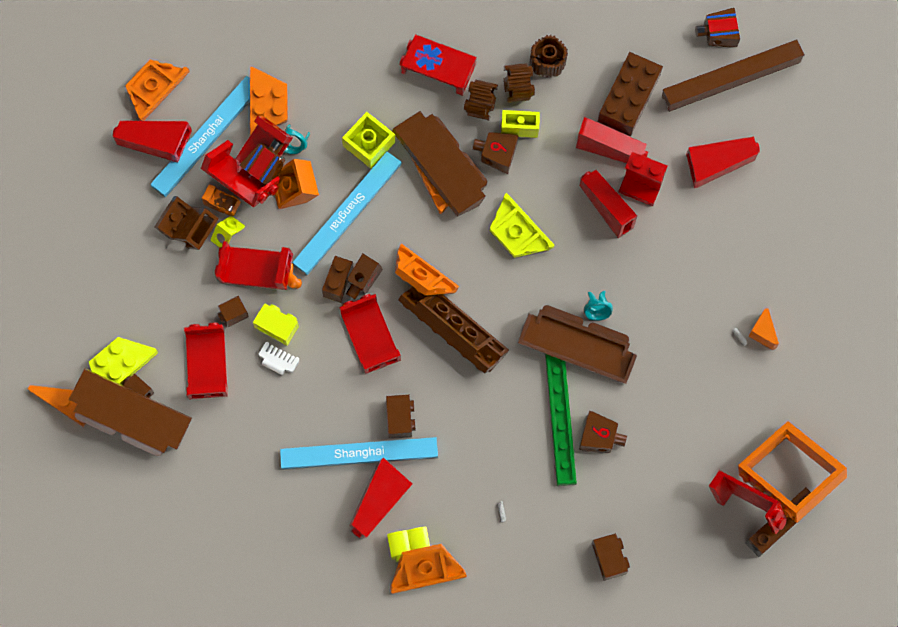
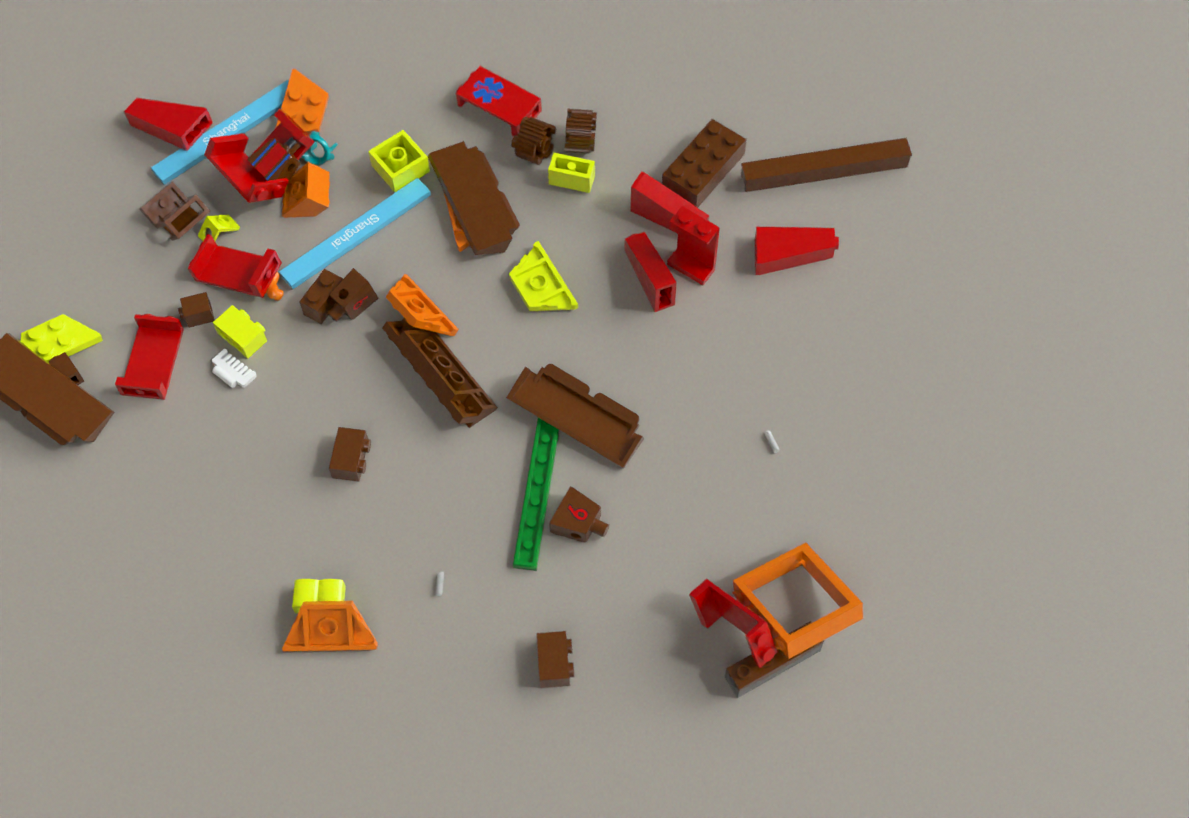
camera: 15 degrees right, 10 degrees down
(153, 85) = (186, 73): orange wing -> none
(220, 201) = (219, 196): orange leg -> none
(358, 453) = (292, 487): medium azure tile -> none
(369, 333) = (342, 360): red panel -> none
(380, 496) = (299, 538): red slope -> none
(497, 150) = (540, 196): reddish brown torso -> none
(540, 59) = (621, 112): reddish brown brick -> none
(599, 308) = (609, 378): teal piece -> none
(720, 29) = (822, 116): torso -> none
(764, 331) = (800, 438): orange slope -> none

